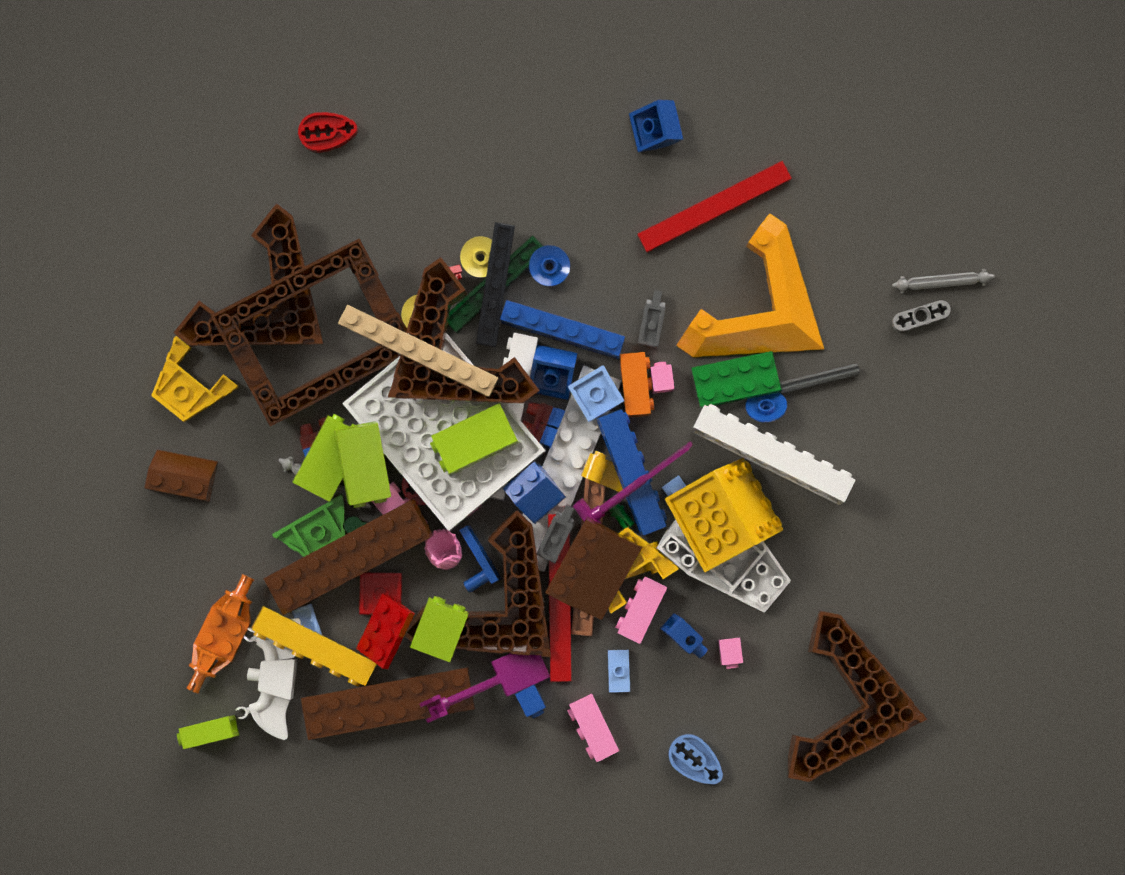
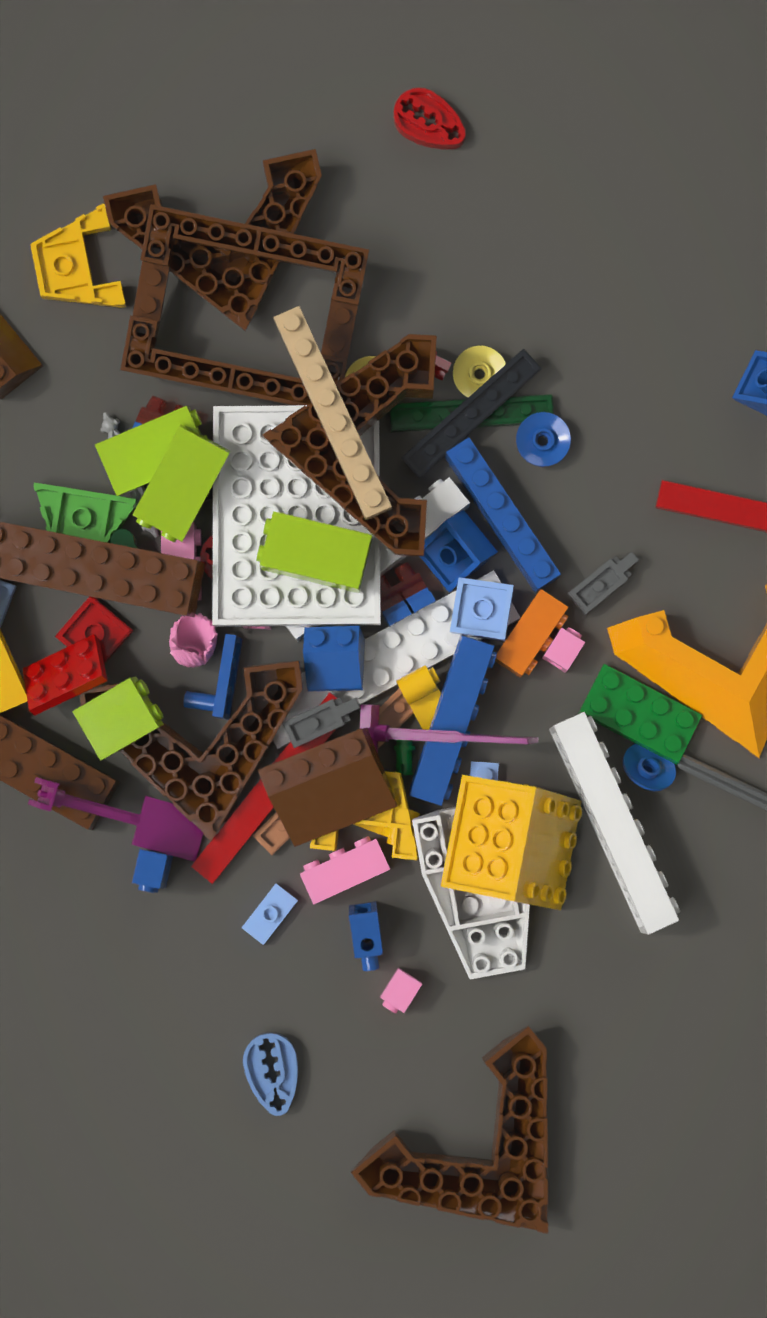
camera: 40 degrees right, 0 degrees up
(593, 728) = (194, 951): bright pink brick -> none

